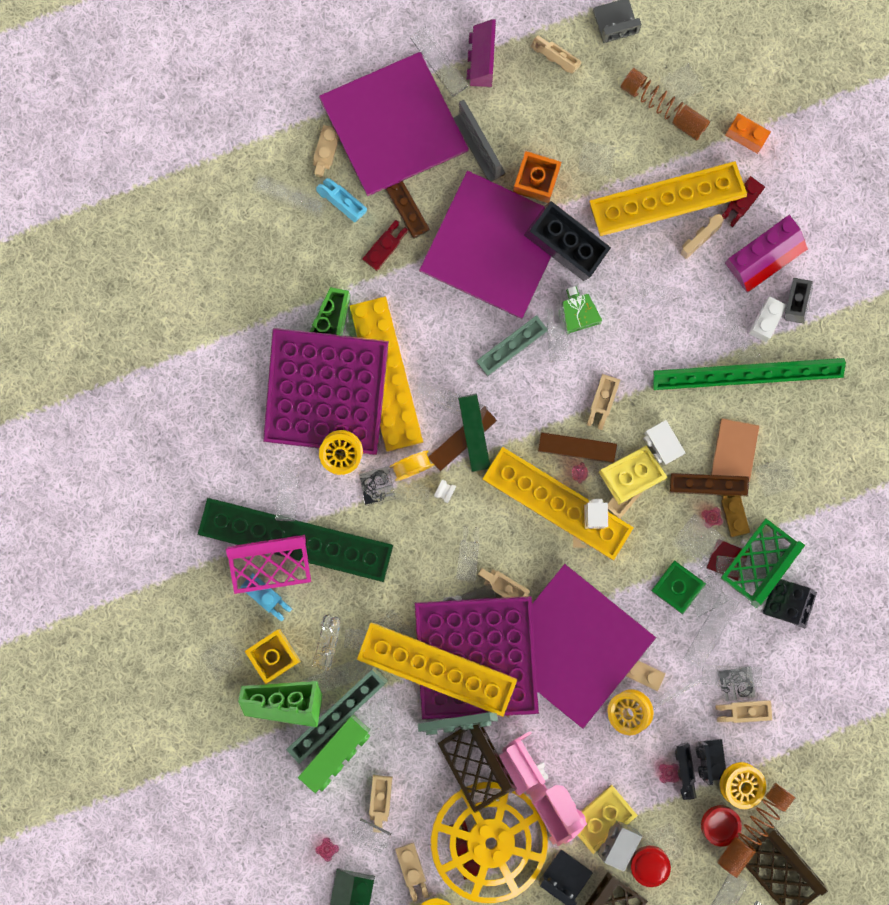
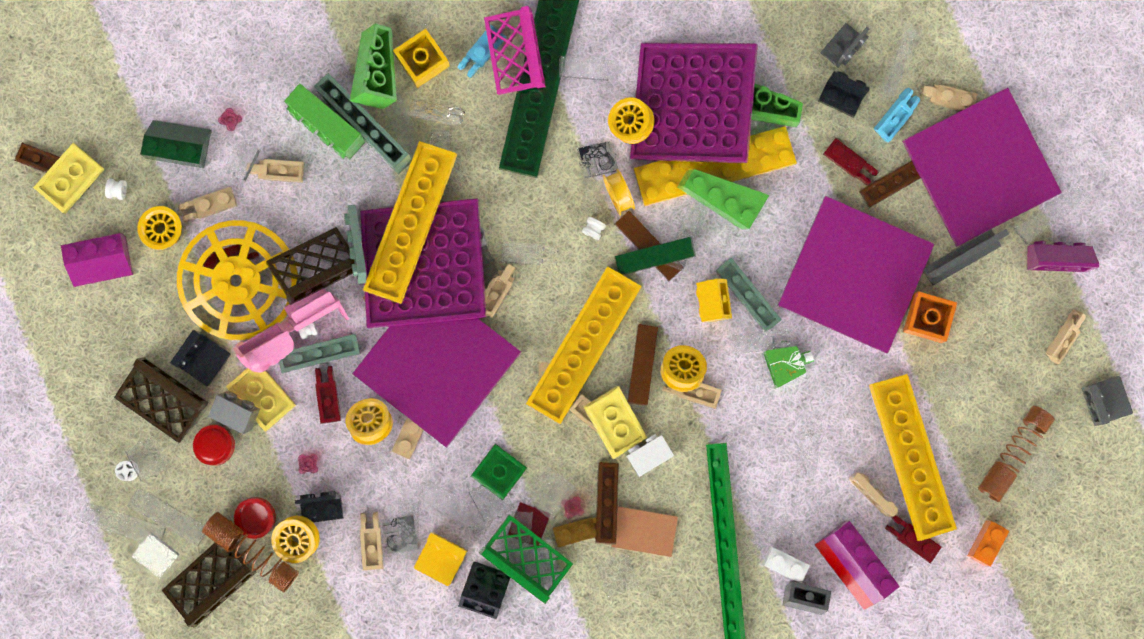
camera: 80 degrees right, 0 degrees up
(271, 246) = (842, 45): none -> dark grey bracket
(320, 249) = (843, 93): none -> black bracket
(421, 361) = (729, 200): none -> bright green wedge
(517, 378) = (713, 300): none -> yellow brick
(562, 758) = (320, 353): none -> sand green plate
(567, 241) = (861, 349): black brick -> none
(579, 473) = (616, 367): clear pink plate -> none
(591, 400) = (679, 378): none -> yellow wheel
(596, 514) = (571, 381): white brick -> none
(605, 753) = (327, 397): none -> dark red hinge
(686, 771) = (310, 481): black hinge -> none
(761, 644) = (440, 559): none -> yellow bracket

